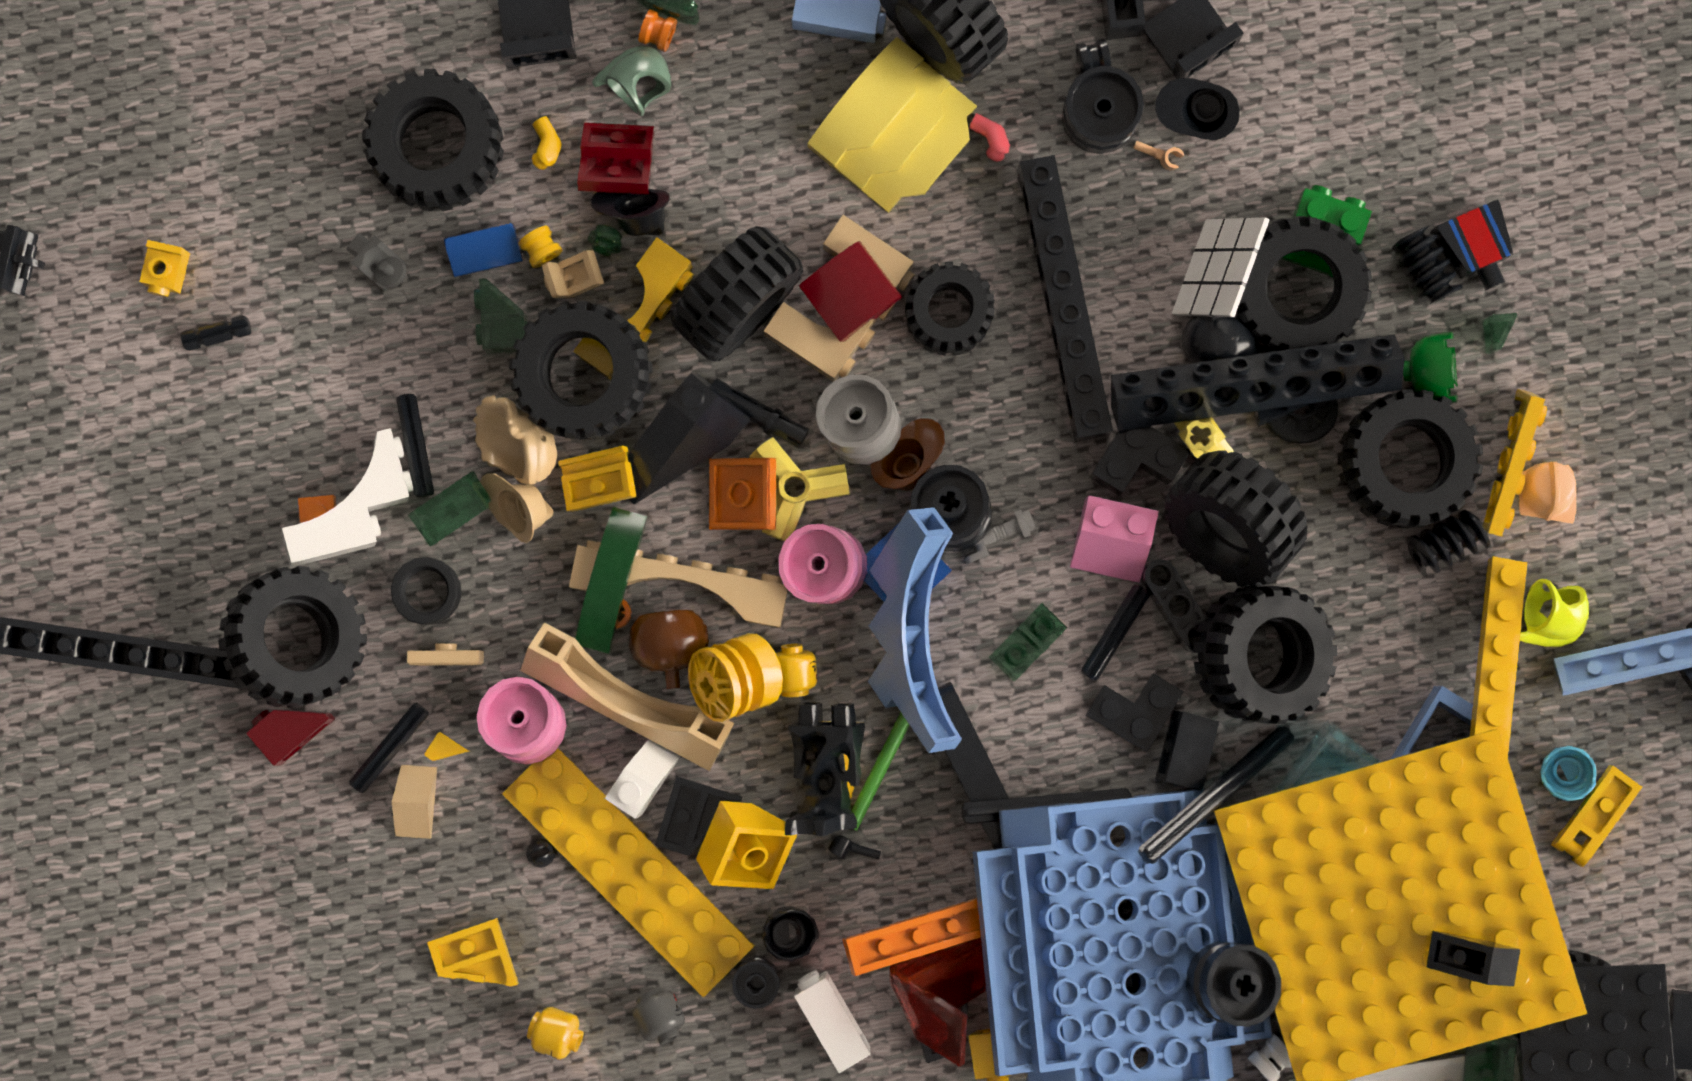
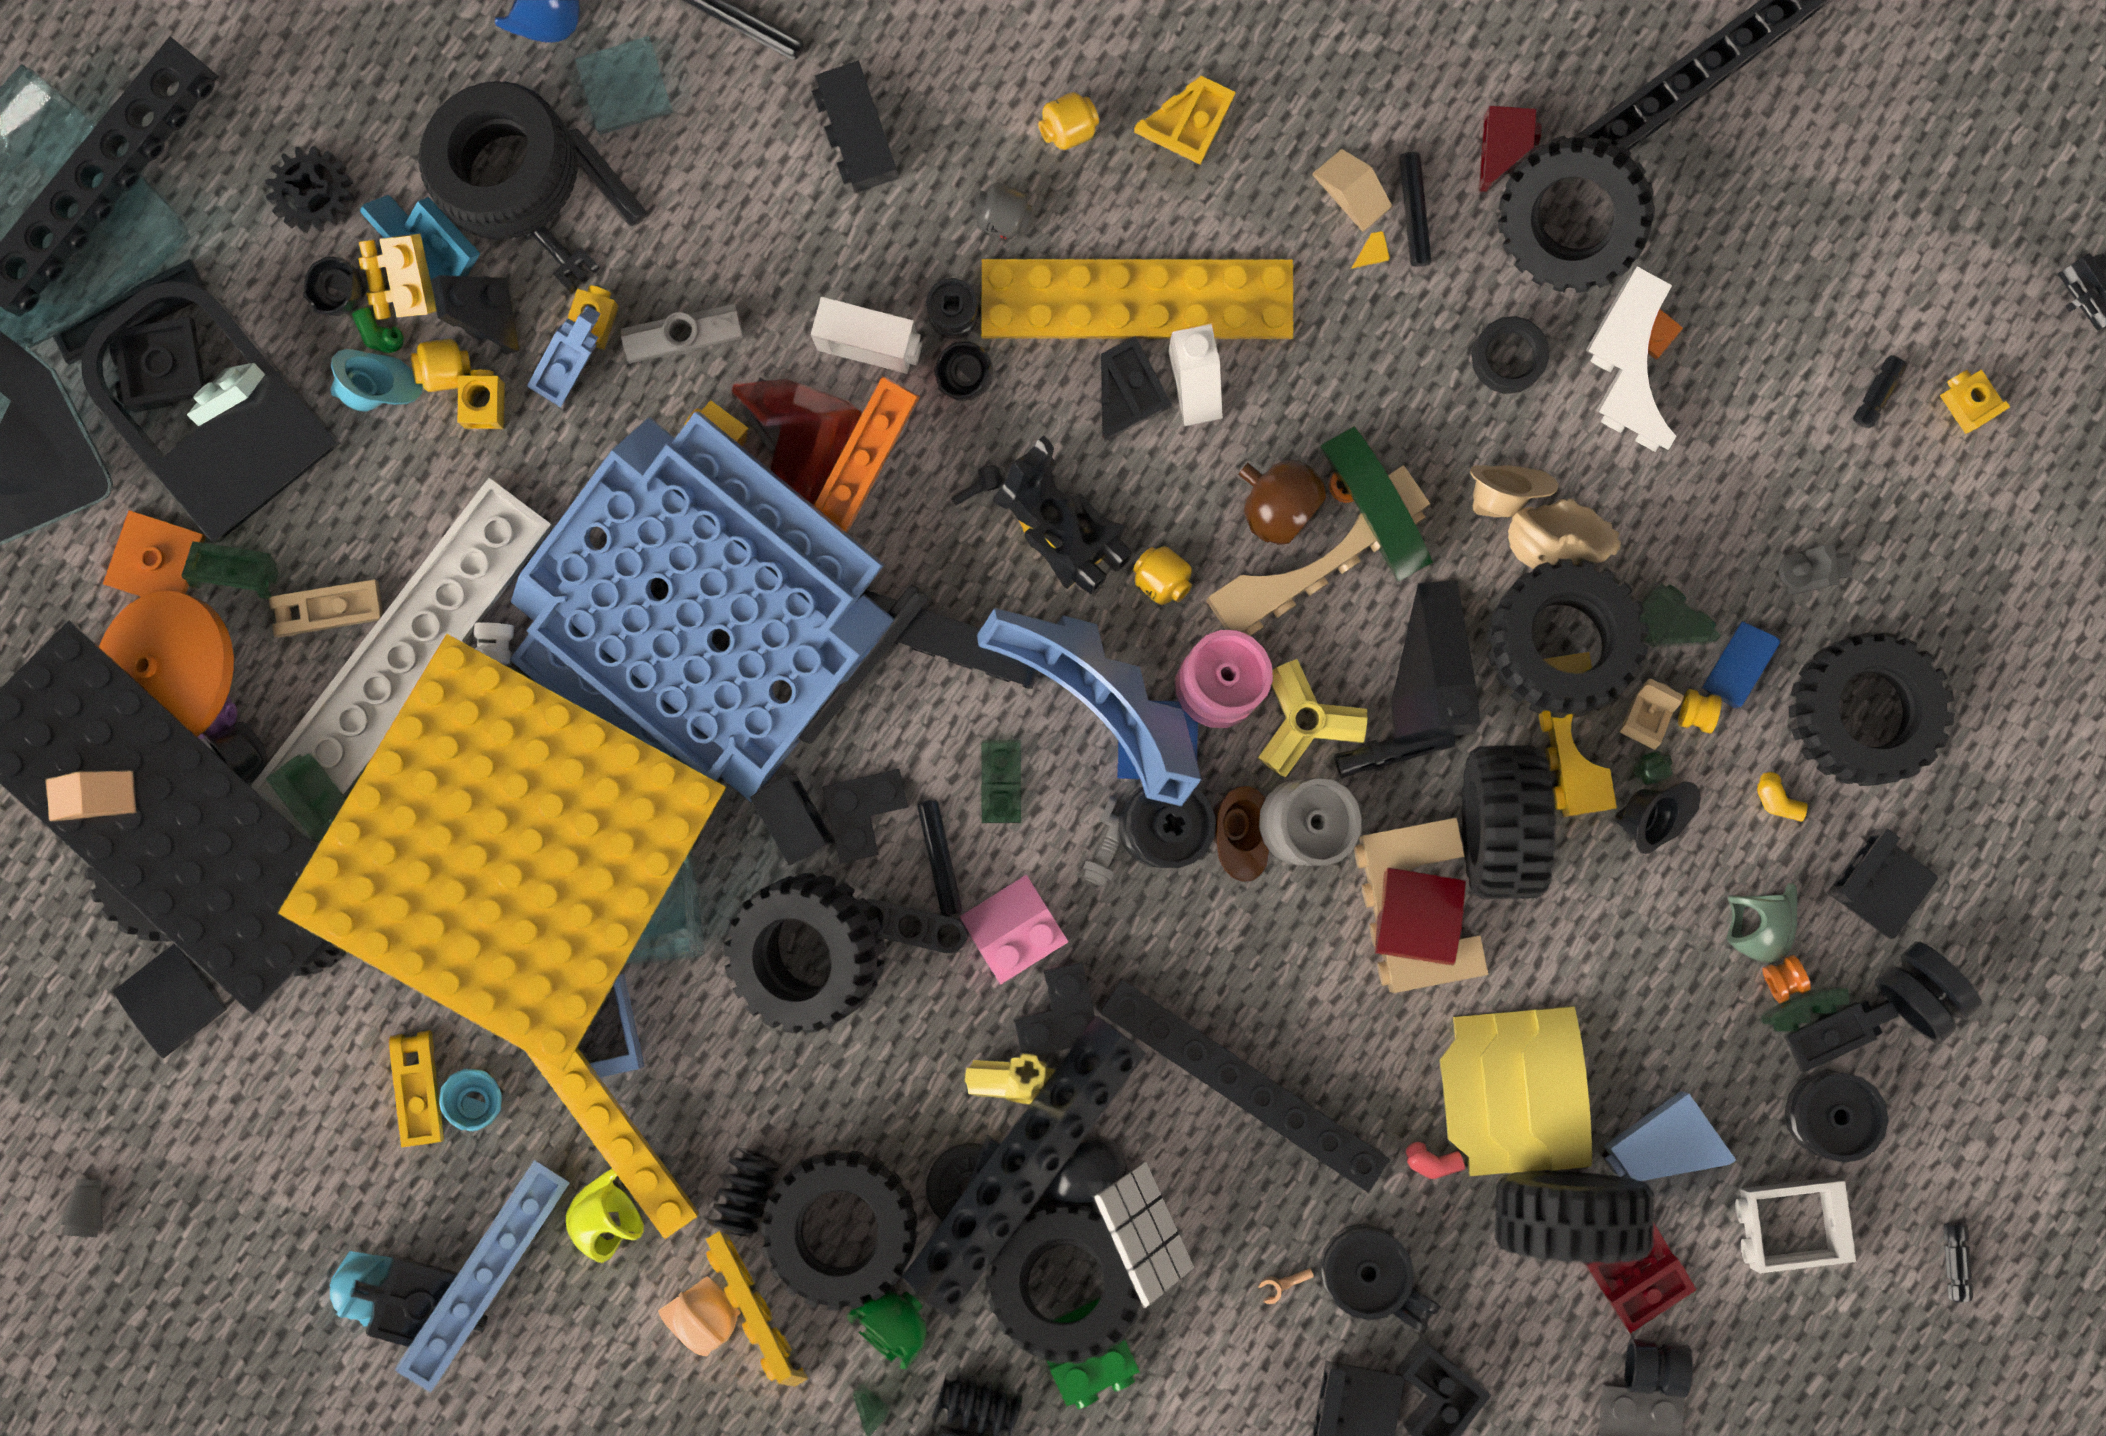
camera: 135 degrees right, 0 degrees up
(415, 445) = (1635, 459): black axle -> none
(445, 656) = (1444, 320): tan plate -> none
(451, 508) = (1556, 435): clear green hinge -> none
(502, 724) = (1335, 327): bright pink wheel -> none
(543, 860) = (1209, 240): black hinge -> none
(568, 668) = (1334, 404): tan arch -> none
(597, 478) = (1467, 572): yellow plate -> none
(615, 158) = (1713, 842): dark red slope -> none
(735, 677) = (1203, 521): yellow wheel -> none
(742, 494) = (1342, 673): orange plate -> none
(744, 847) = (1065, 400): yellow slope -> none
(880, 768) = (1017, 562): bright green bar -> none
(949, 278) = (1362, 984): black tyre -> none
(1197, 108) = (1290, 1350): black piece -> none
(1215, 795) = (736, 802): black axle -> none
(1233, 983) = (580, 664): black wheel -> none
(1236, 518) = (933, 1036): black tyre -> none
(1473, 959) = (408, 865): black slope -> none

